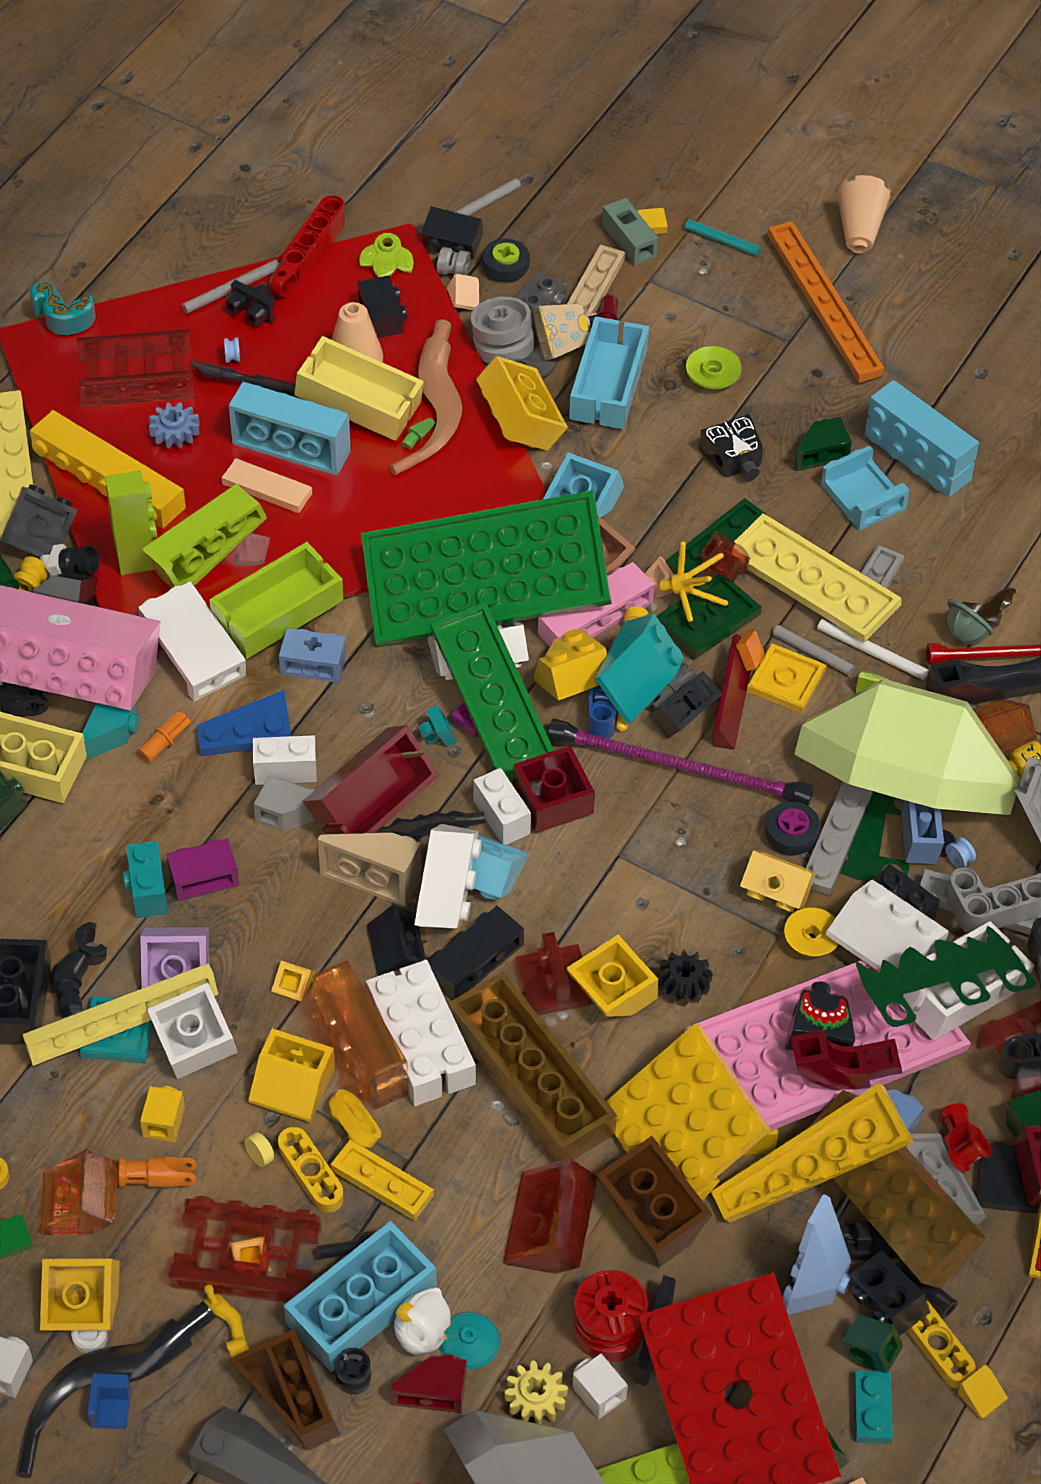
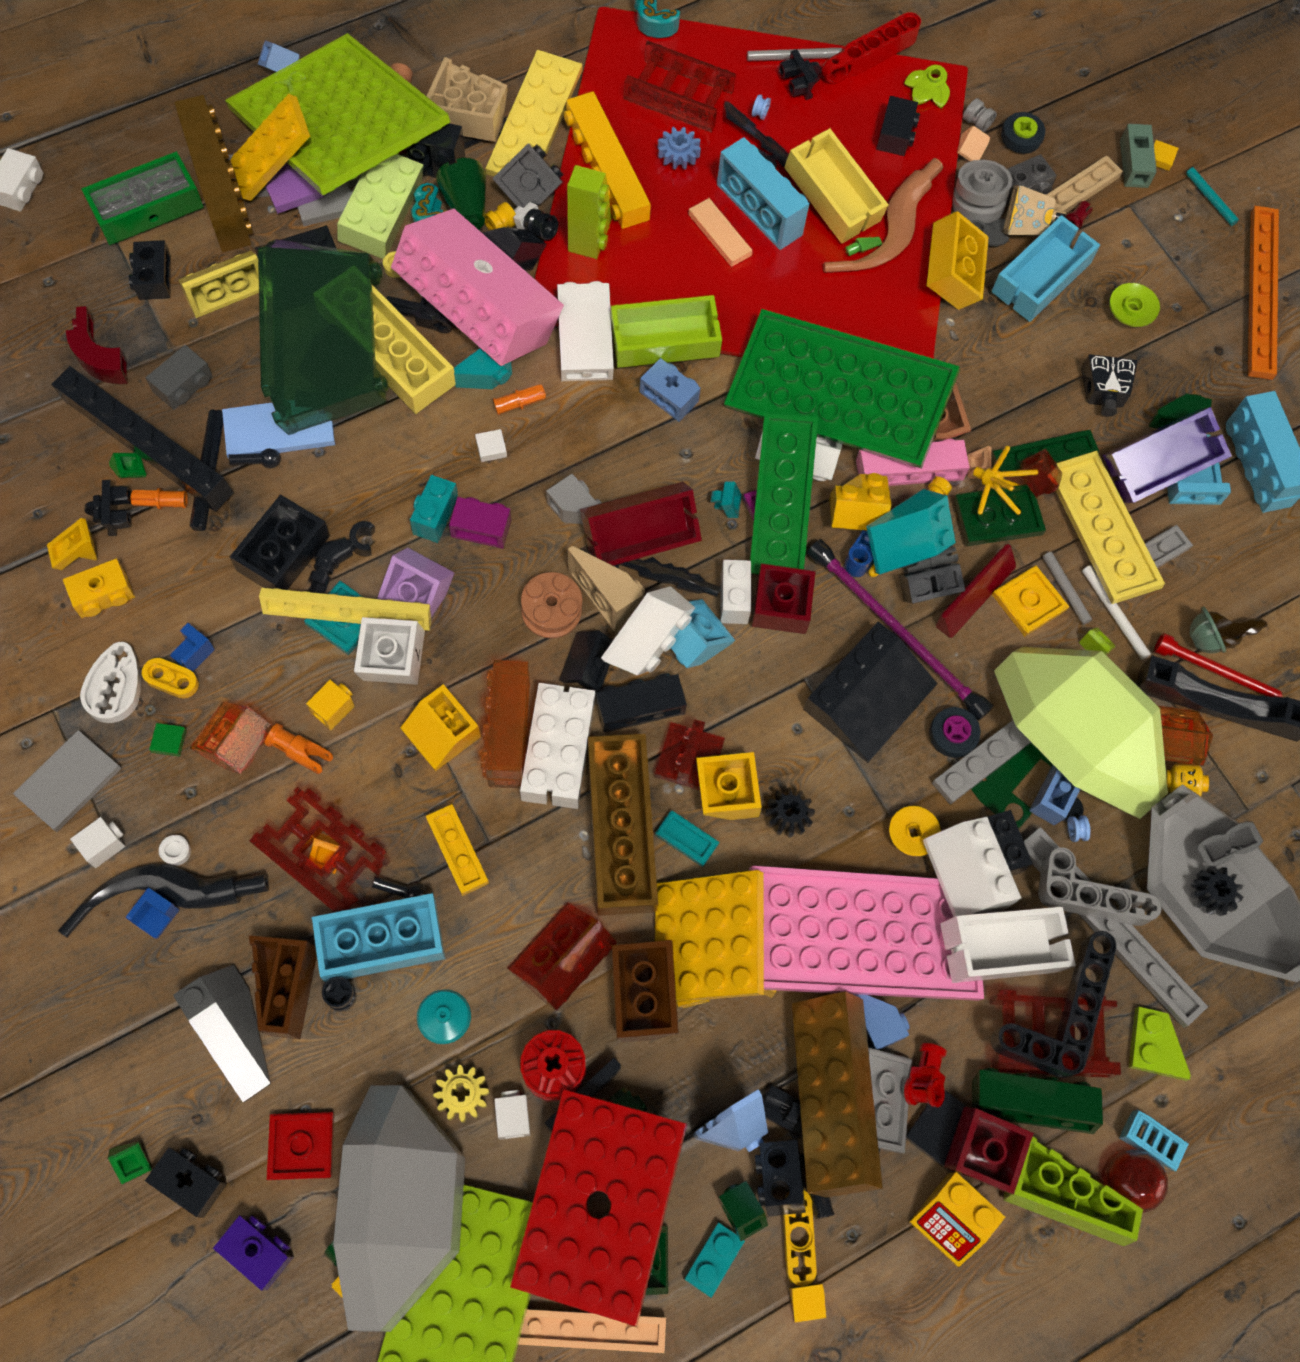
camera: 25 degrees right, 15 degrees up
(79, 1294) = (181, 816): yellow slope -> none
(162, 795) = (491, 445): none -> white tile
(204, 537) = (639, 252): lime wedge -> none
(228, 1313) = (278, 881): yellow piece -> none
(237, 728) = (587, 423): blue wing -> none
(249, 552) = (664, 274): clear slope -> none
(259, 1149) = (382, 773): light yellow tile -> none
(285, 758) = (595, 465): white brick -> none
(292, 980) = (494, 647): yellow slope -> none
(310, 1183) = (419, 789): yellow beam -> none
(326, 909) = (551, 605): none -> nougat wheel
(354, 1118) = (467, 788): yellow plate -> none
(356, 331) = (860, 140): light nougat cone -> none
(422, 1321) = (411, 986): white hair -> none
(433, 1385) = (392, 1041): dark red slope -> none
(451, 231) = (993, 89): black brick -> none
(490, 197) = (1028, 76): light grey bar -> none
(584, 475) = (970, 352): medium azure slope -> none
(602, 1053) = (687, 838): none -> teal tile
(690, 832) = (871, 692): none -> black slope
(750, 650) = (1014, 563): orange tile -> none
(777, 880) = (913, 772): yellow brick -> none
(820, 1011) = (864, 921): black torso -> none
(831, 484) = (1167, 455): none -> piece
(836, 1144) = (812, 1037): yellow wing -> none
(844, 1066) = (857, 969): dark red arch -> none
(952, 965) = (1004, 934): dark green piece -> none

